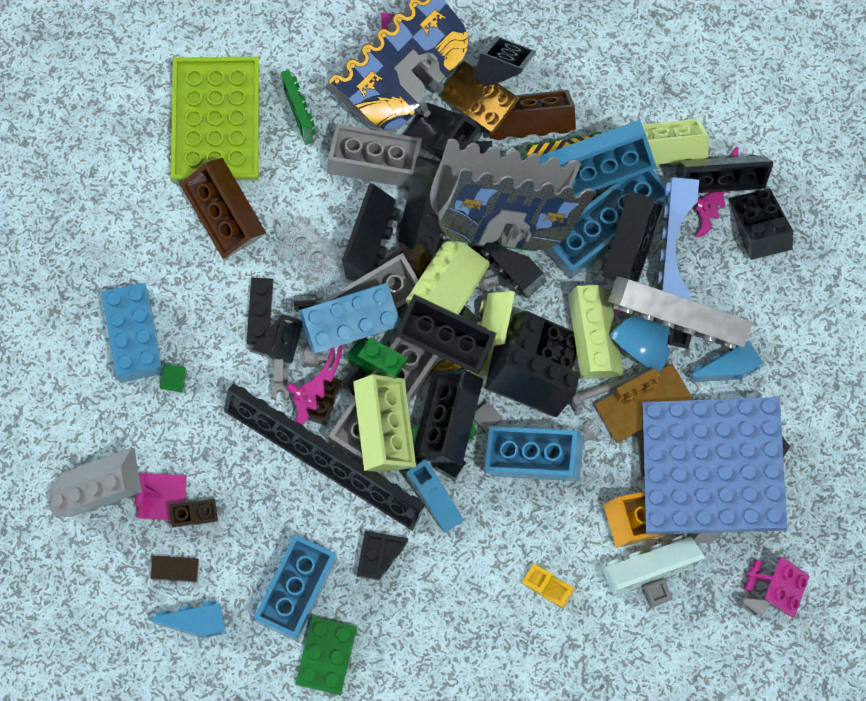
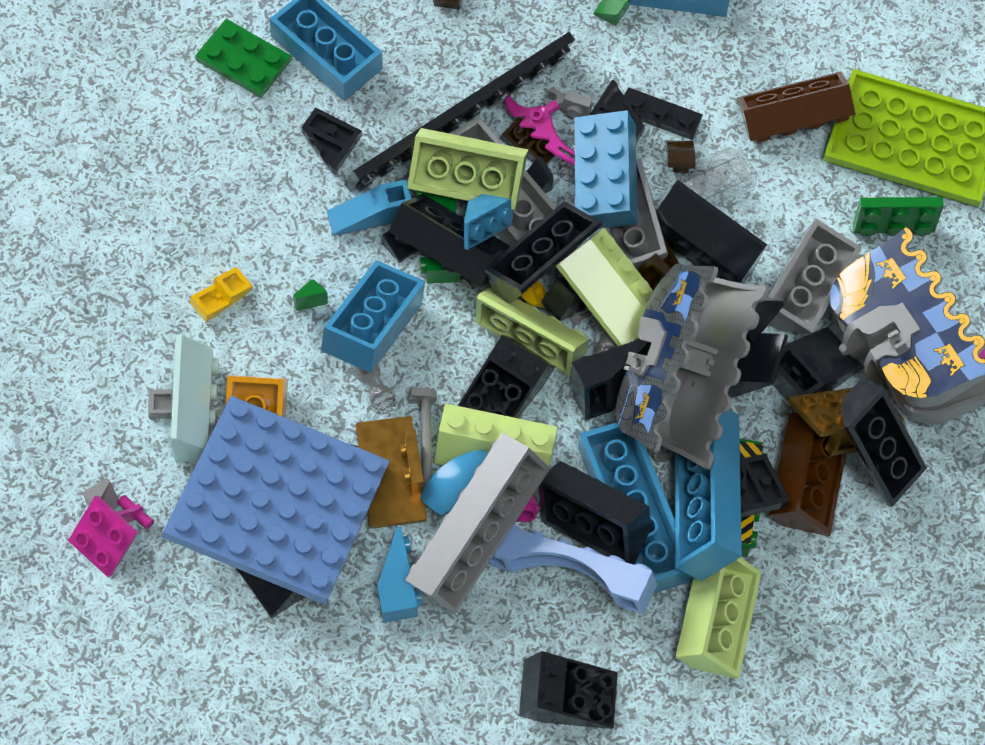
camera: 110 degrees right, 10 degrees down
(298, 279) = (680, 155): none -> dark brown slope
(304, 301) = (654, 158): black slope -> none
(376, 358) = (547, 183): green arch -> none
(428, 393) = (486, 217): none -> dark azure slope
(487, 416) = (443, 299): light grey tile -> none
(526, 515) = (310, 296): none -> green slope
(531, 379) = (462, 339): black slope -> none
(565, 132) = (760, 486): none -> black wing
(708, 206) = (616, 641): dark pink piece -> none
(727, 173) = (649, 664): black slope -> none

